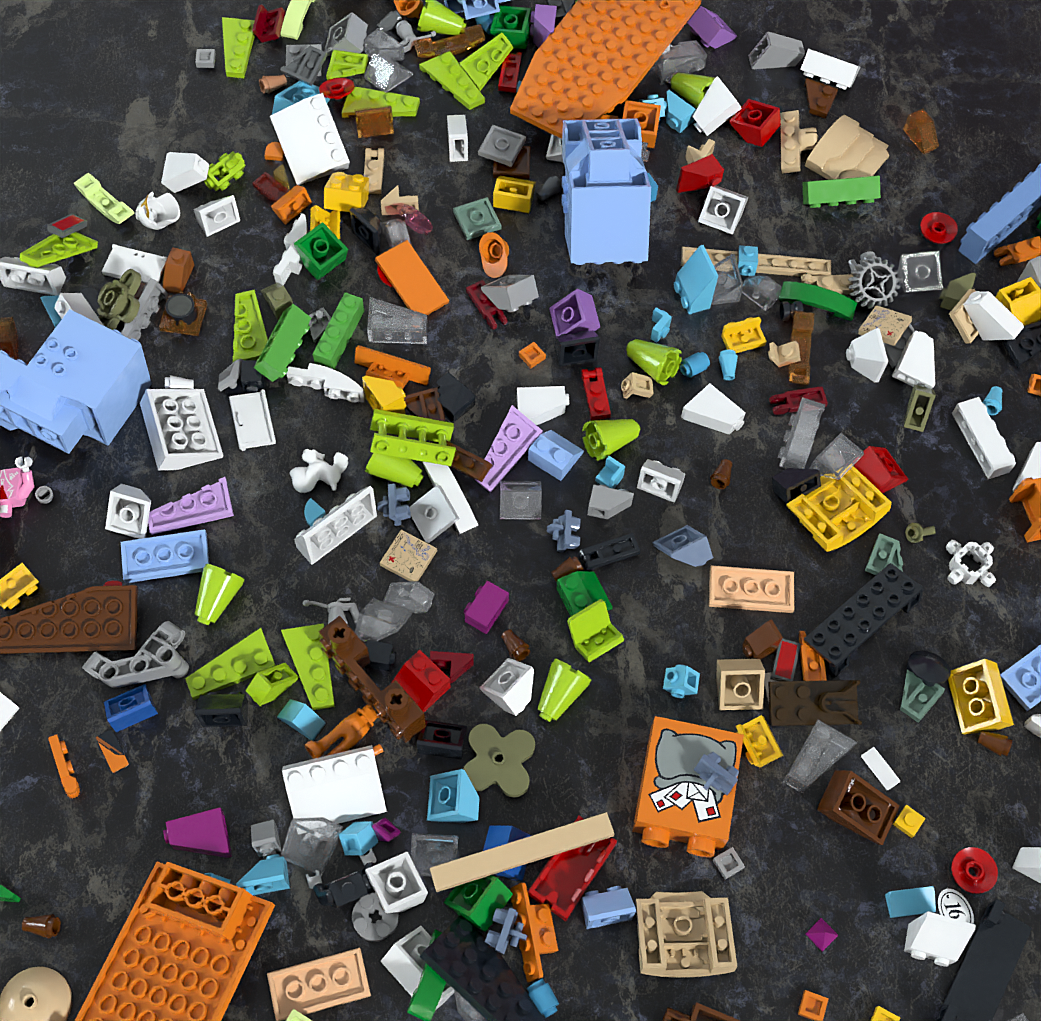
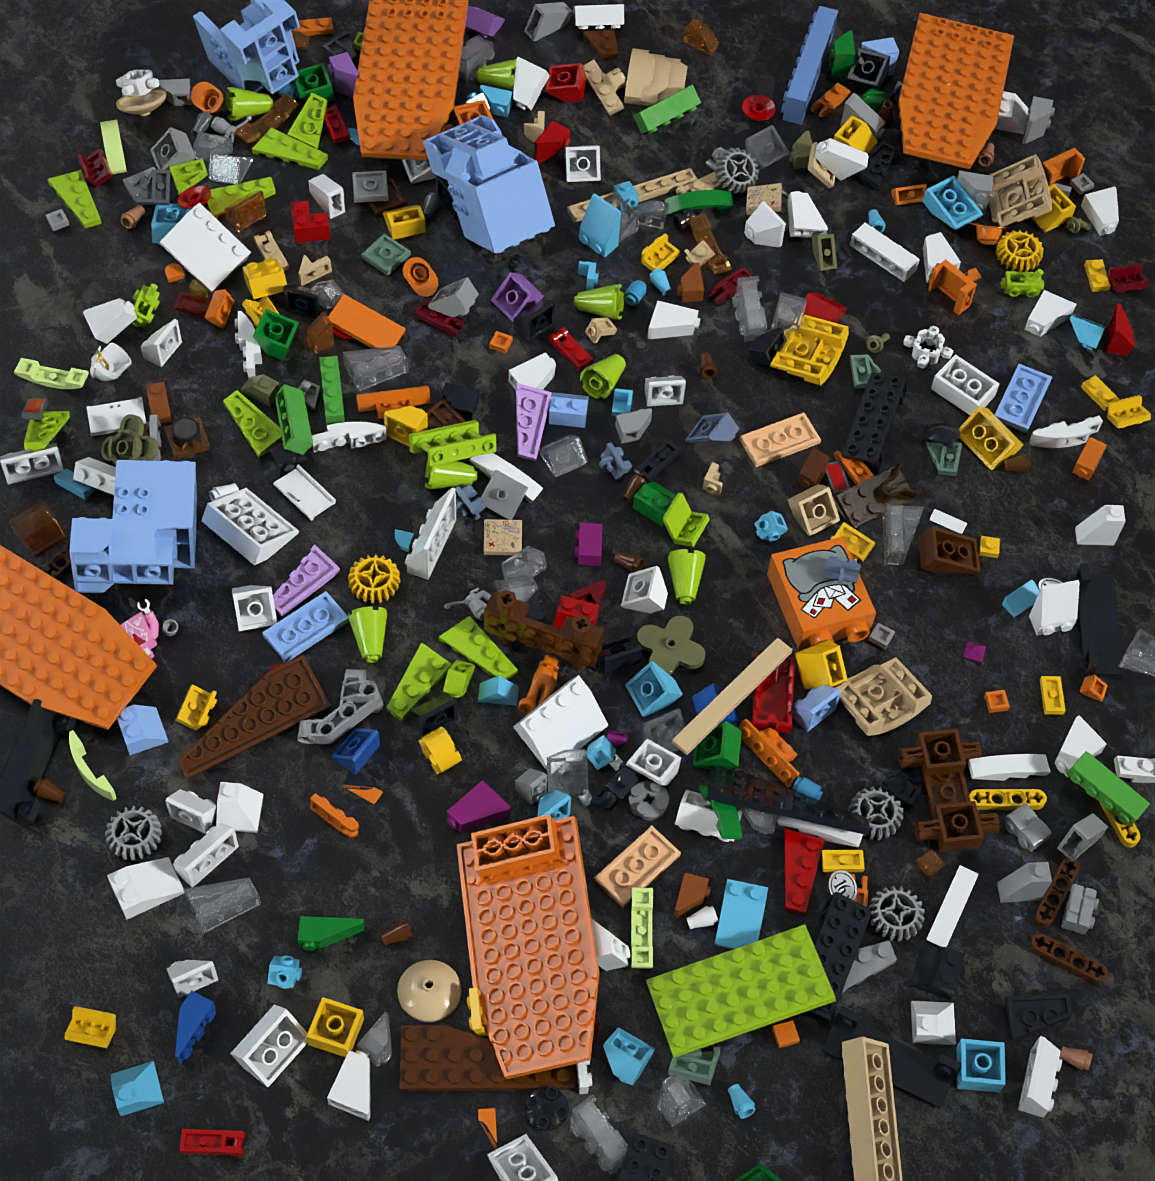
camera: 30 degrees left, 5 degrees down
(201, 752) = (440, 750): none -> yellow brick
(230, 375) = (263, 466): light grey piece -> none
(254, 529) = (363, 575): none -> yellow gear
(305, 478) = (383, 514): white animal -> none
(362, 270) = (320, 334): none -> clear orange slope
(416, 220) = (338, 276): clear pink tile -> none
(421, 158) = (309, 226): none -> red brick
(469, 463) = (512, 444): reddish brown plate -> none
(507, 919) = (750, 747): sand blue hips -> none
(638, 866) = (821, 665): none -> yellow slope
(652, 598) = (711, 481): none -> tan bracket
(756, 382) = (691, 285): none -> dark orange slope
(983, 865) = (1056, 550): red dish -> none
(985, 626) = (964, 385): none -> white brick

